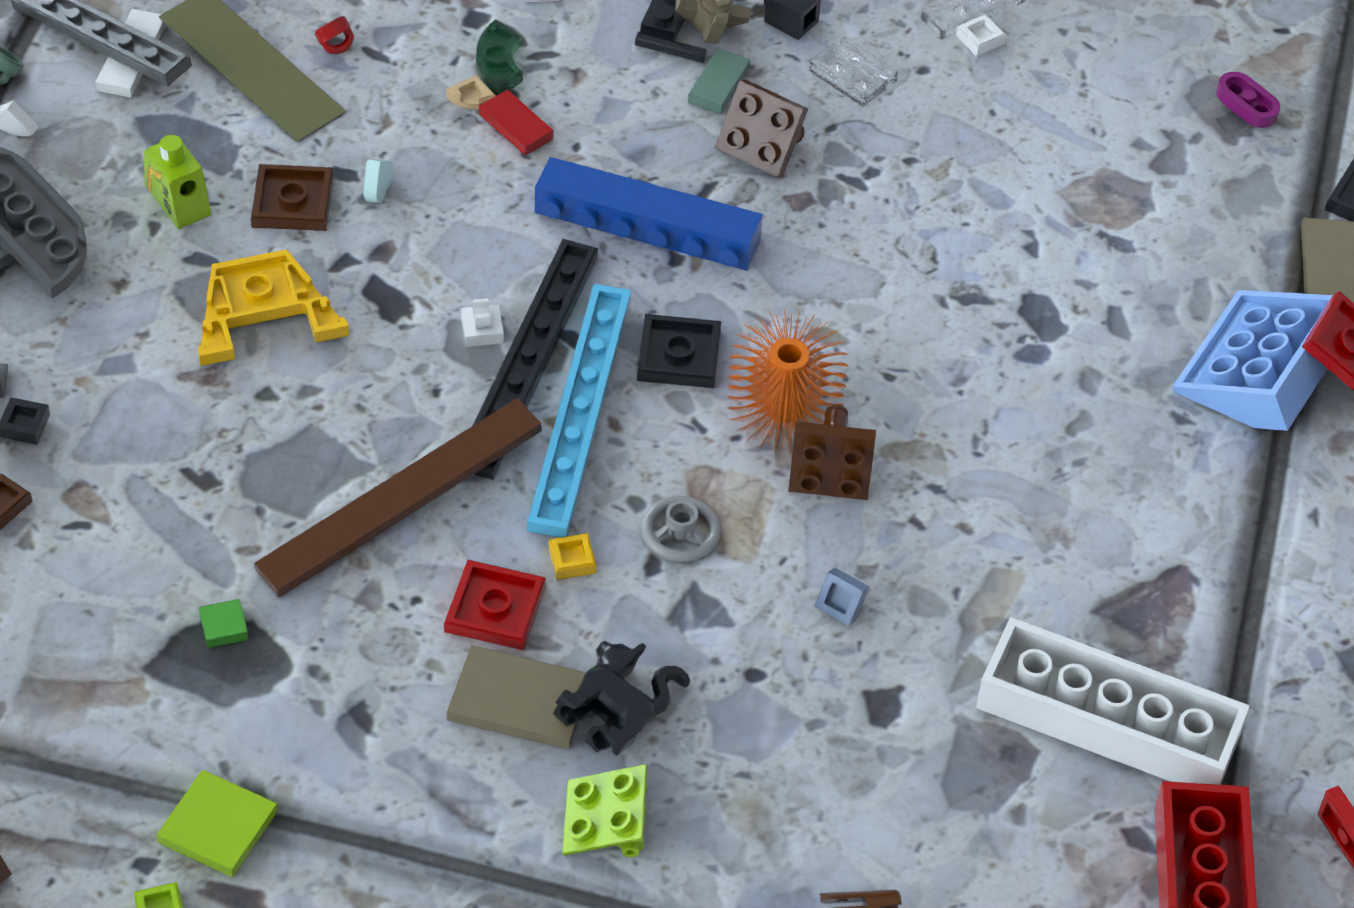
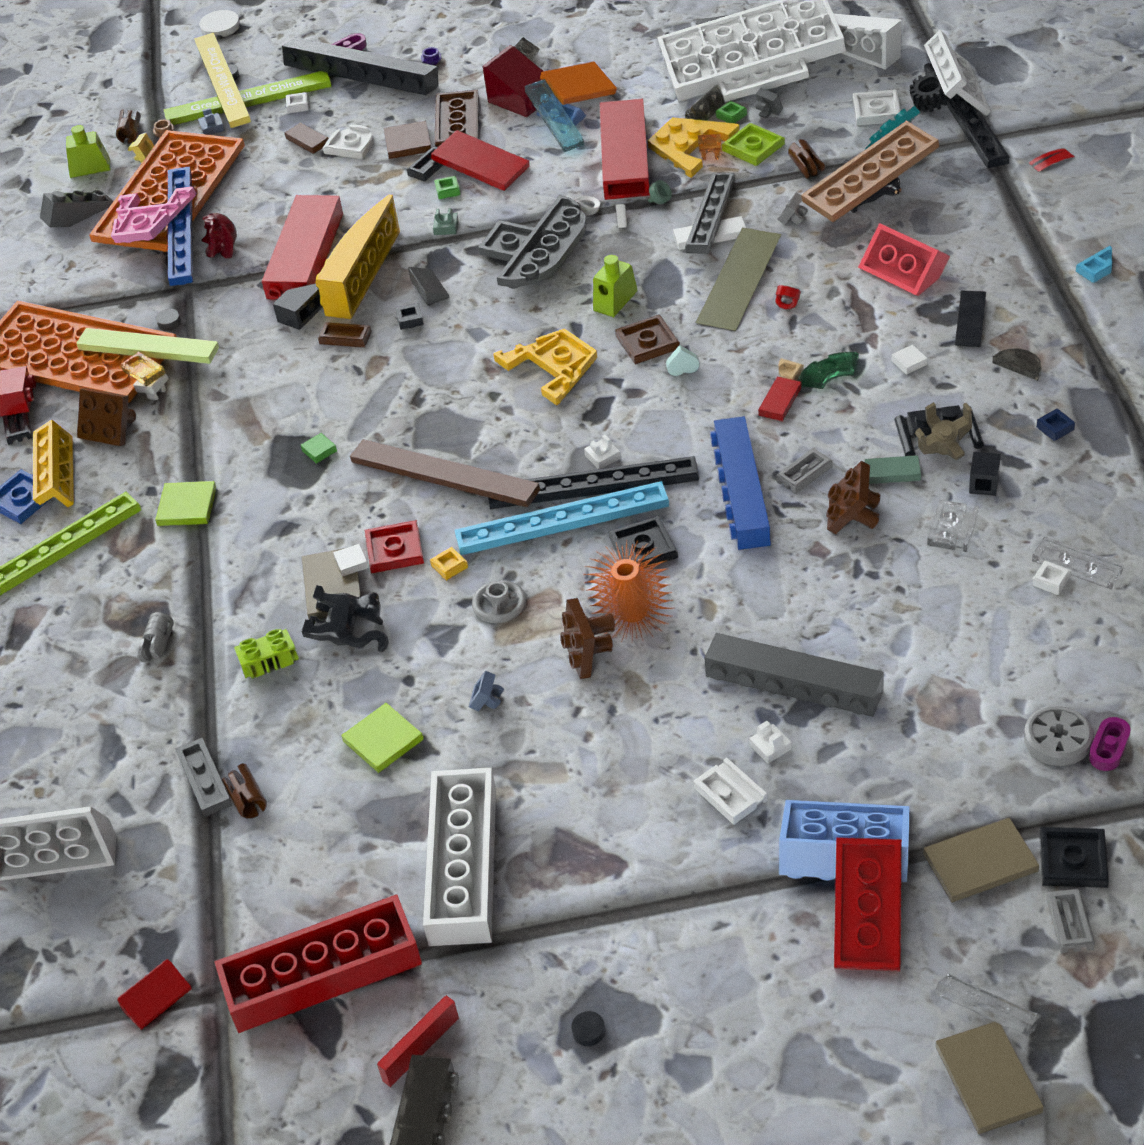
camera: 75 degrees right, 5 degrees down
(505, 653) = (350, 560): none -> white tile
(667, 174) = (807, 472): none -> light grey tile
(846, 733) = (382, 737): none -> lime tile
(997, 299) = (794, 674): none -> dark grey brick
(1082, 364) = (769, 742): none -> white tile
(1138, 425) = (730, 791): none -> white plate
(1211, 132) = (1063, 751): none -> light grey wheel

